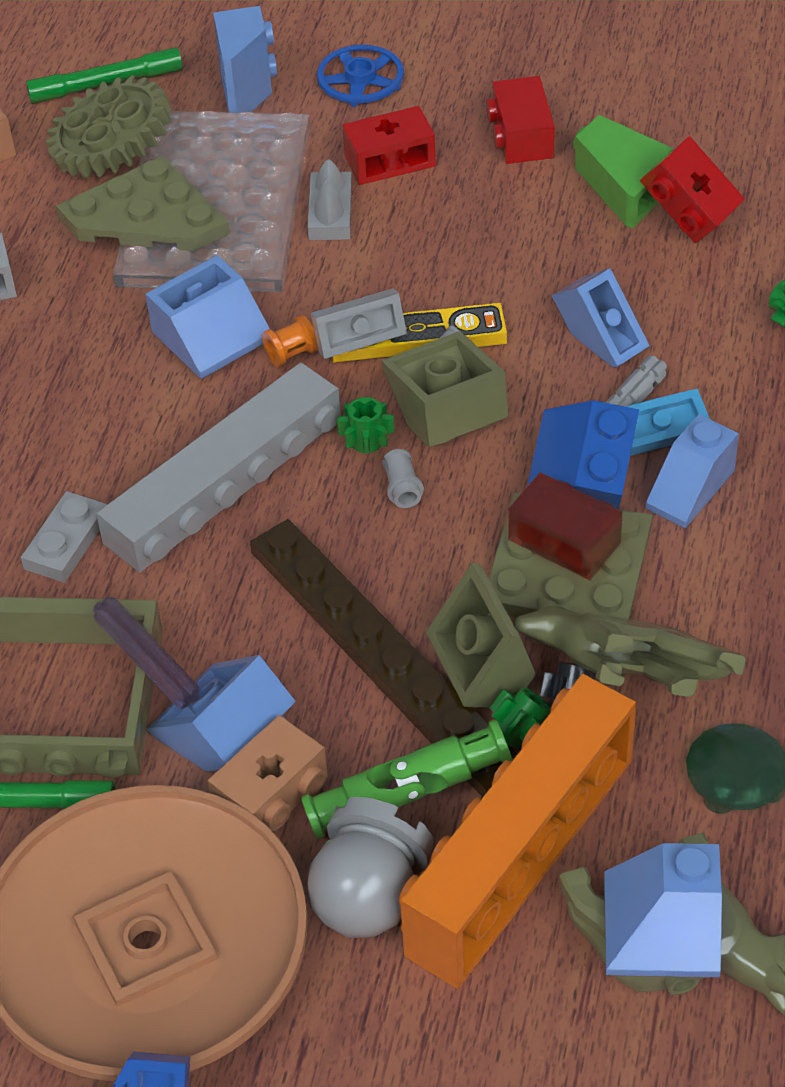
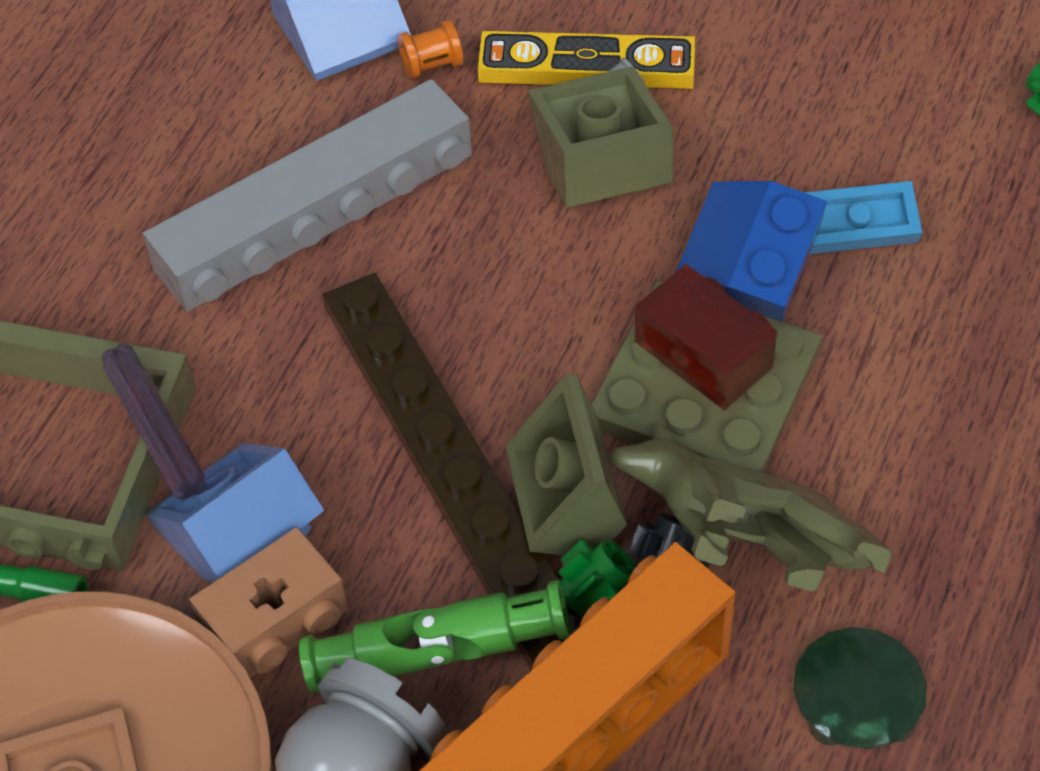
camera: 10 degrees right, 5 degrees up
(63, 537) = (105, 255): light grey plate -> none
(358, 323) = (513, 39): light grey tile -> none
(365, 425) = (495, 167): green gear -> none
(403, 486) = (524, 251): light grey pin -> none
(601, 317) = (814, 73): medium blue slope -> none
(640, 382) = (841, 164): light grey axle -> none
(693, 470) = (886, 286): medium blue slope -> none

